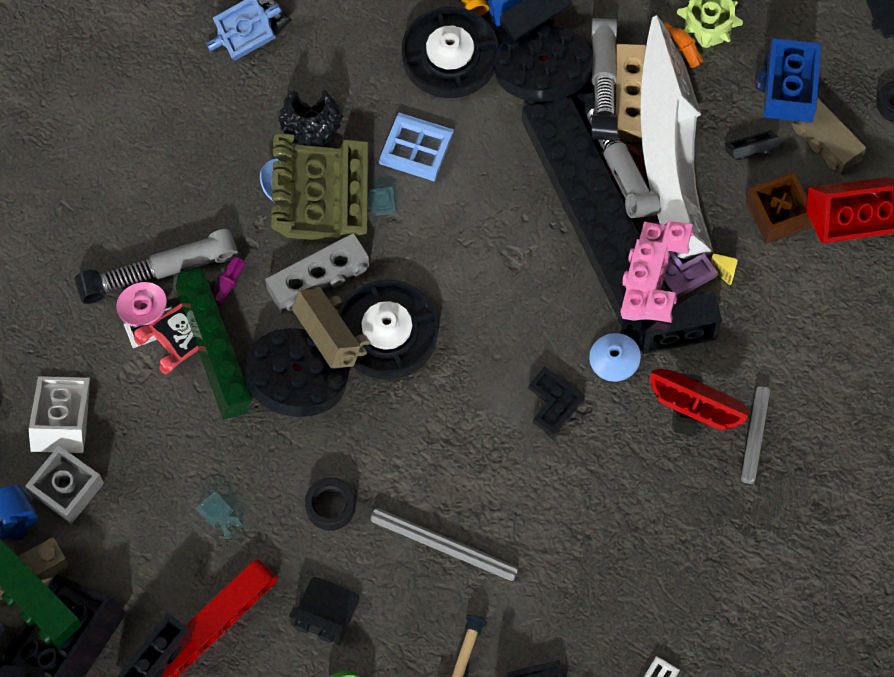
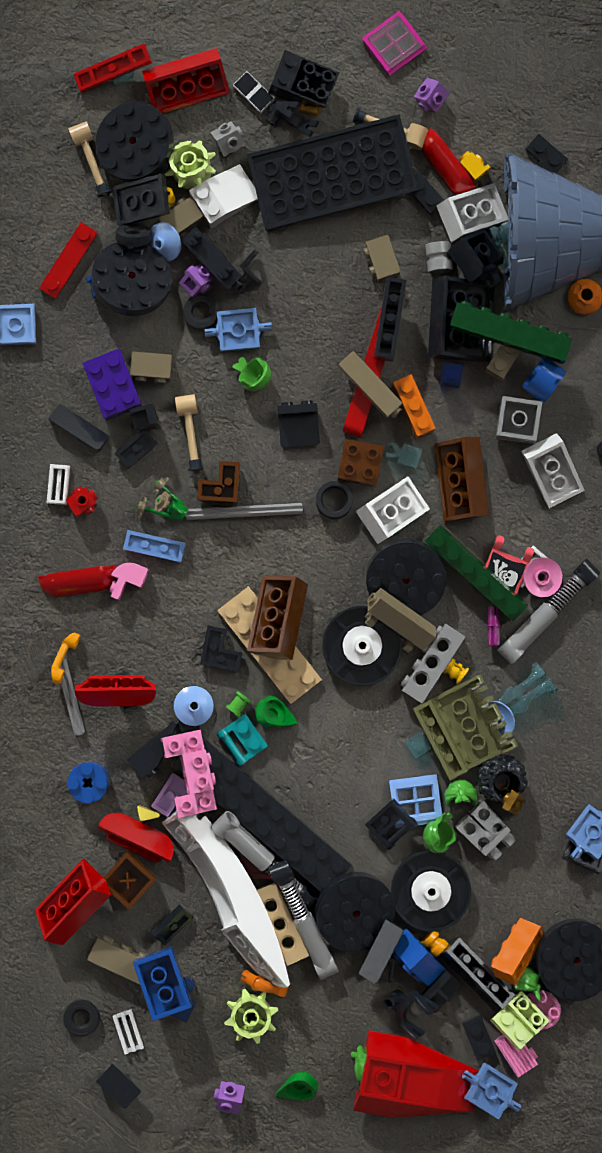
camera: 155 degrees right, 20 degrees up
(111, 577) = (451, 375): none -> clear blue brick
(169, 454) = (461, 479): none -> reddish brown slope
(176, 562) = (414, 406): none -> orange brick
(213, 605) = (370, 385): none -> dark tan brick
(249, 197) = (516, 692): none -> clear light blue piece
(269, 458) = (392, 510): none -> white slope
(276, 528) = (360, 463): none -> reddish brown brick
(294, 250) = (455, 671): none -> yellow bush
(312, 90) = (513, 802): none -> pearl gold plate
(357, 73) = (490, 835): none -> light grey hips
(361, 125) = (460, 791): none -> bright green hat
(410, 99) = (439, 834): none -> bright green hat
(455, 575) = (223, 490): none -> reddish brown brick
(457, 139) = (388, 817): none -> black plate
(468, 400) = (277, 617): none -> reddish brown slope
(493, 383) = (290, 676): none -> tan plate
(527, 304) = (274, 713): none -> green piece
(535, 590) = (176, 510): none -> plant
(561, 334) = (238, 704): none -> bright green bush
(568, 297) = (248, 737): none -> teal plate
(572, 554) = (154, 546): none -> medium blue plate
(619, 537) = (126, 573): none -> bright pink brick
(634, 646) = (75, 501): none -> red brick
(684, 561) = (77, 581): none -> red brick
(725, 493) = (69, 642): none -> light orange bar
(745, 245) = (137, 837): none -> red brick
(777, 329) = (77, 783): none -> blue brick
(854, 49) = (117, 1023): none -> white tile

